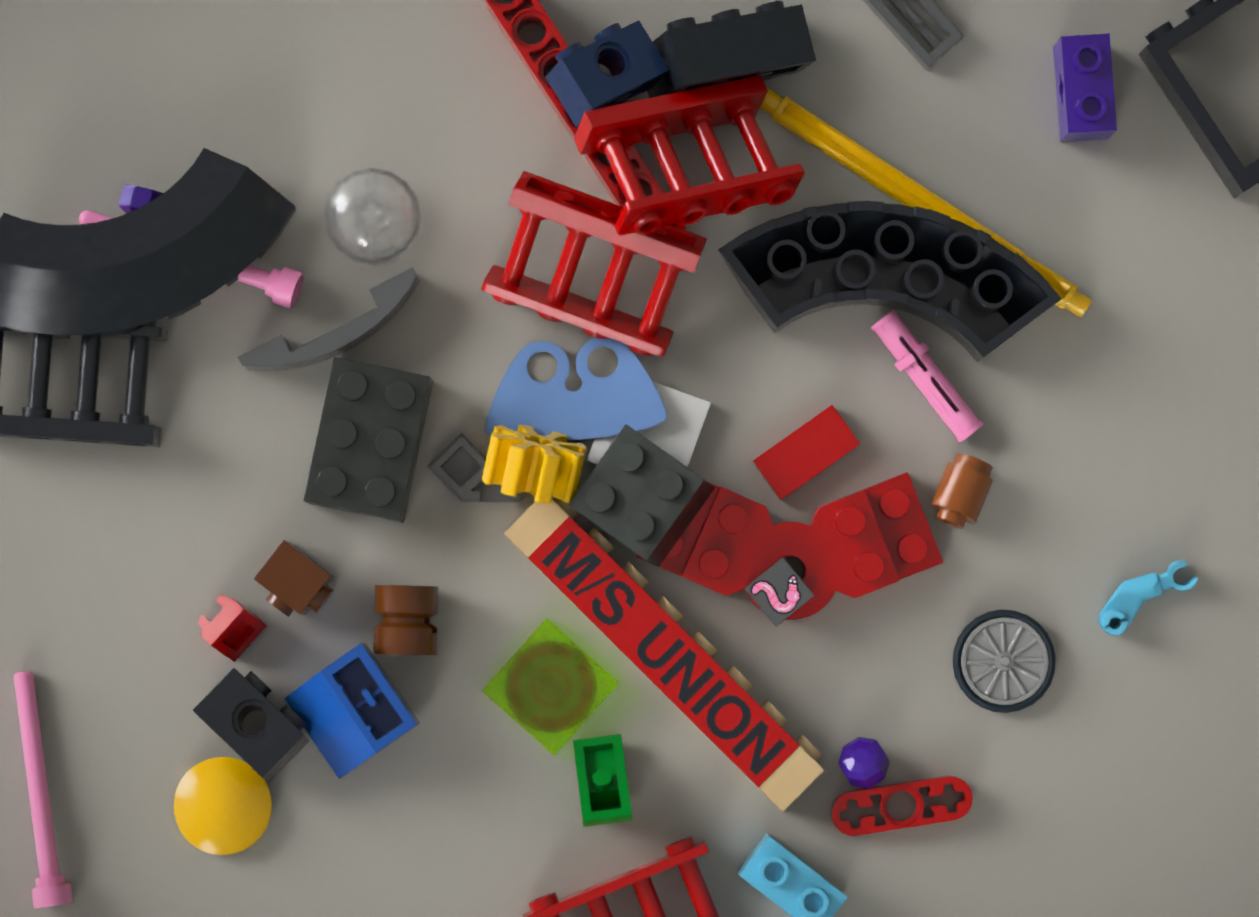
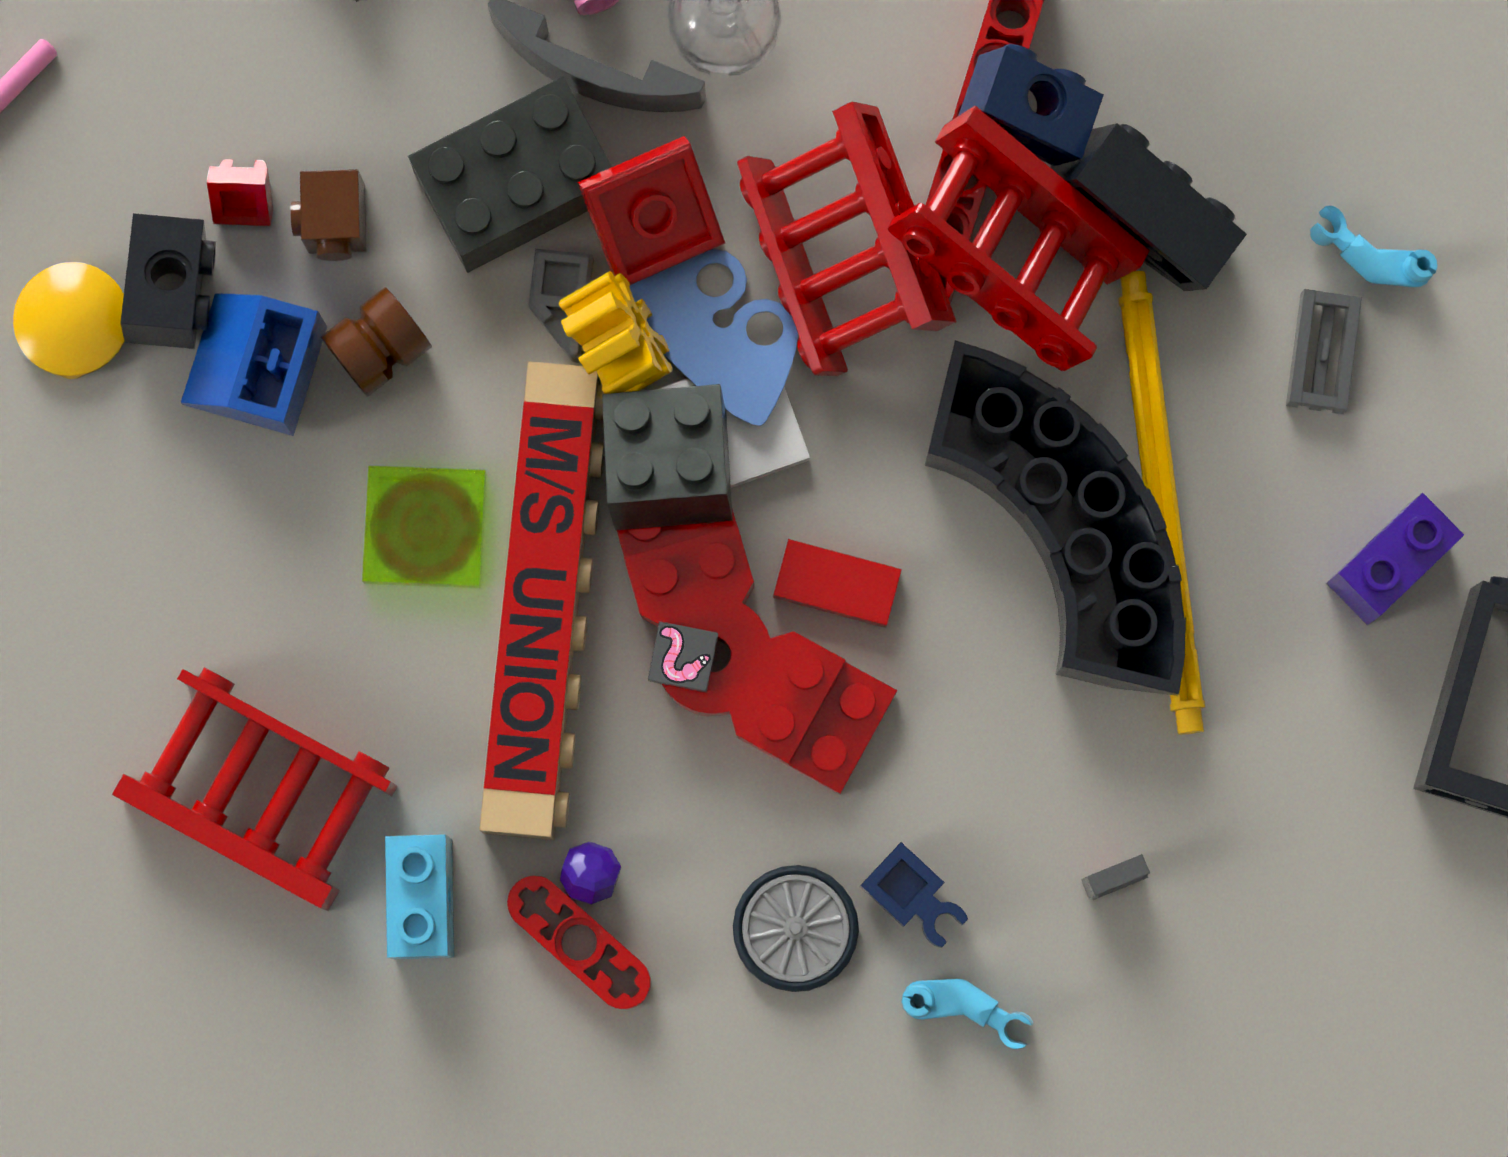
camera: 55 degrees right, 5 degrees down
(469, 372) = (652, 211): none -> red tile
(602, 780) = (373, 641): green slope -> none
(926, 375) = (1018, 567): bright pink pin -> none
(962, 491) = (922, 755): dark orange brick -> none
(1038, 570) = (907, 889): none -> dark blue plate
(1139, 433) = (1116, 877): none -> dark grey tile

